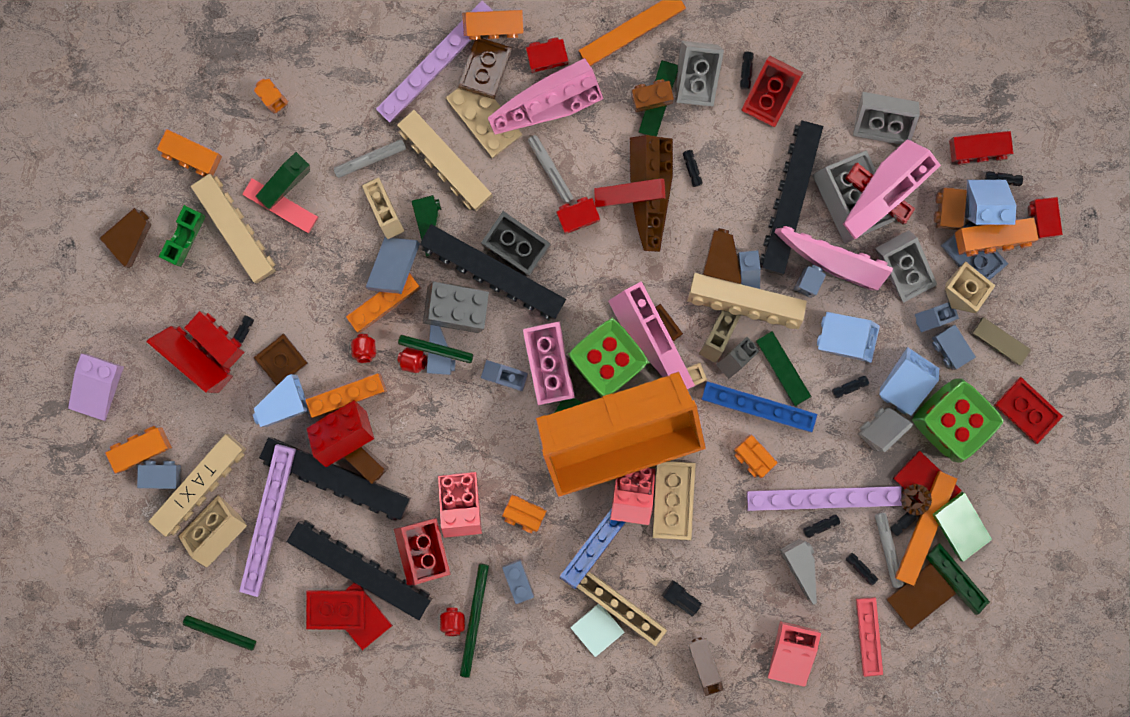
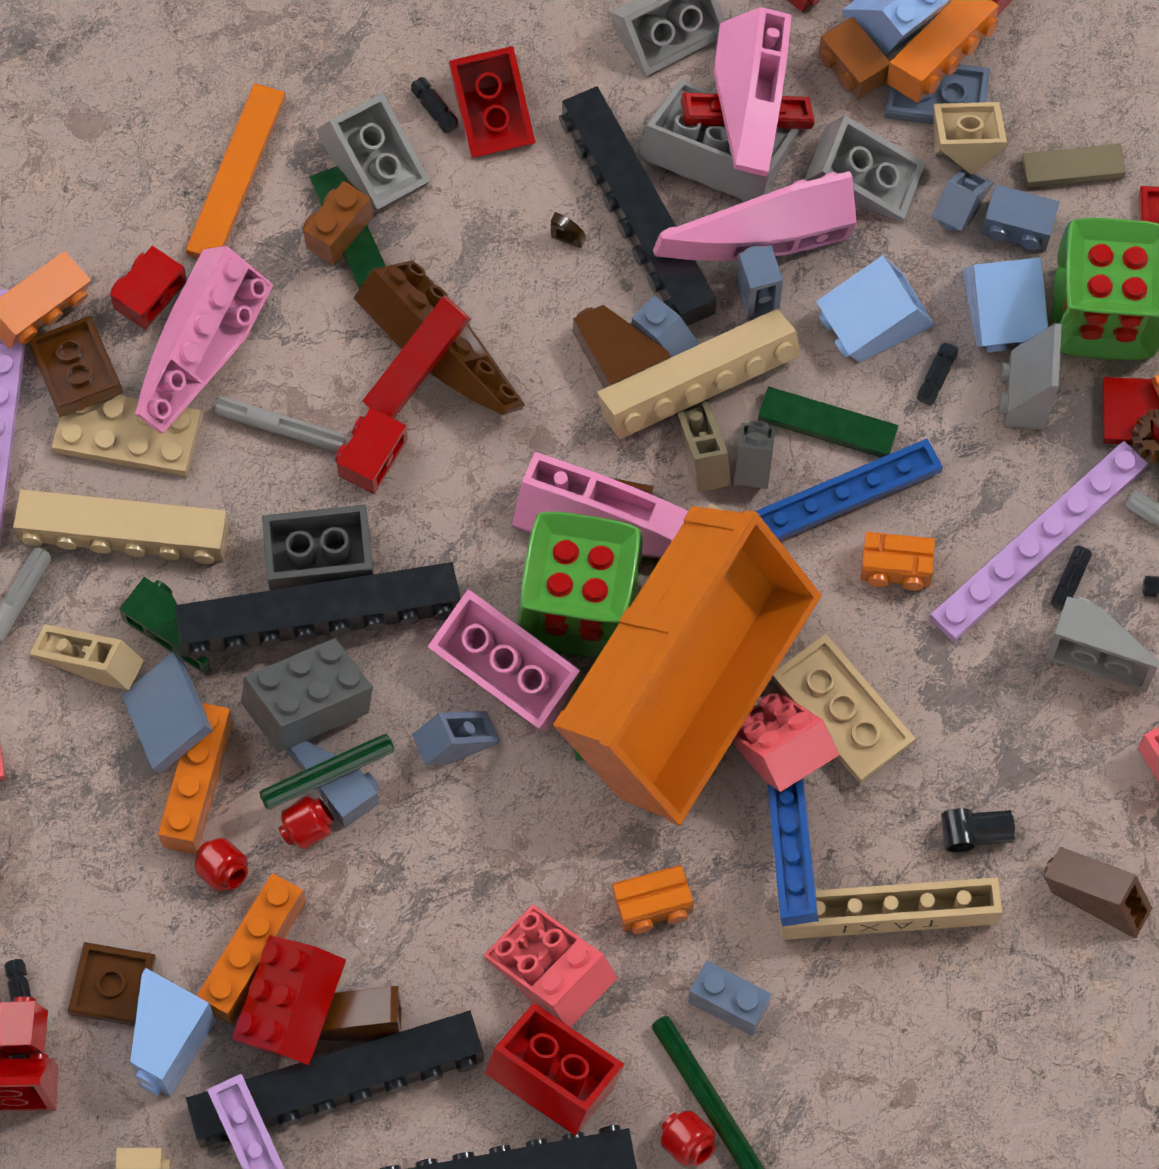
camera: 45 degrees left, 20 degrees down
(597, 629) = (902, 974): light aqua tile -> none
(692, 168) = (472, 274): black axle -> none
(750, 183) = (567, 230): none -> dark brown tile

